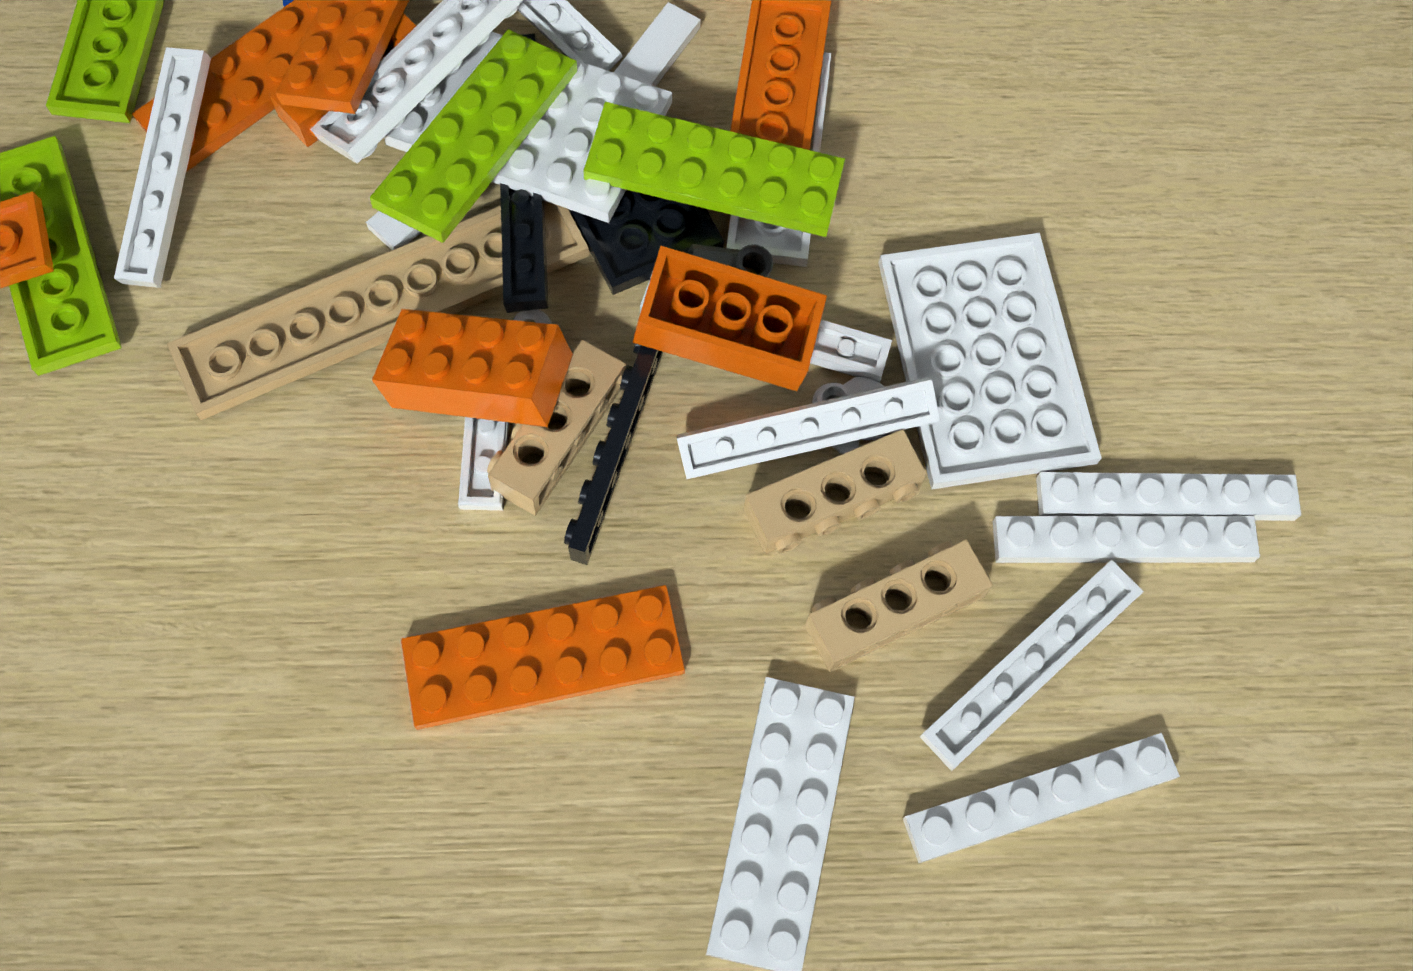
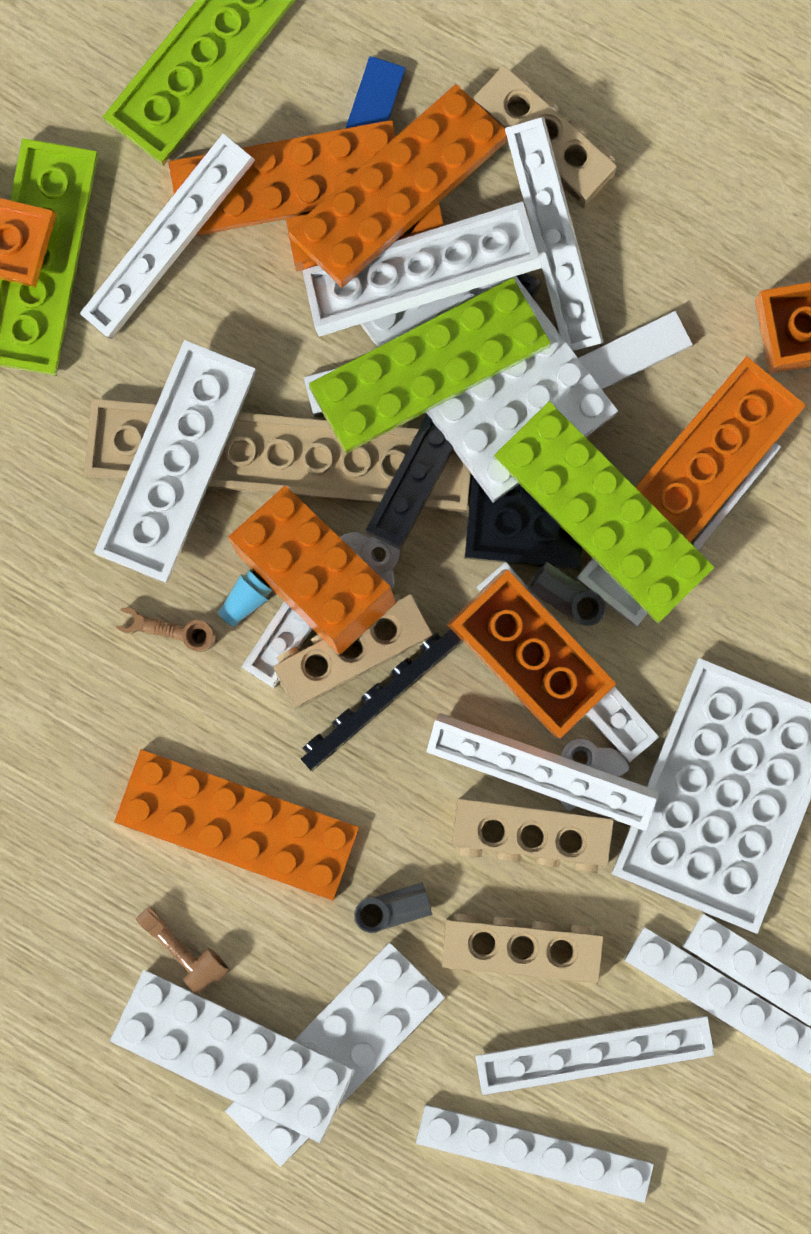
camera: 40 degrees right, 15 degrees up
(281, 351) = (175, 461): none -> white plate
(389, 493) = (187, 633): none -> medium nougat brick
(423, 438) = (244, 598): none -> medium azure cone
(593, 822) = (200, 970): none -> medium nougat brick
(678, 888) = (232, 1056): none -> white plate
(749, 640) = (396, 907): none -> dark grey piece

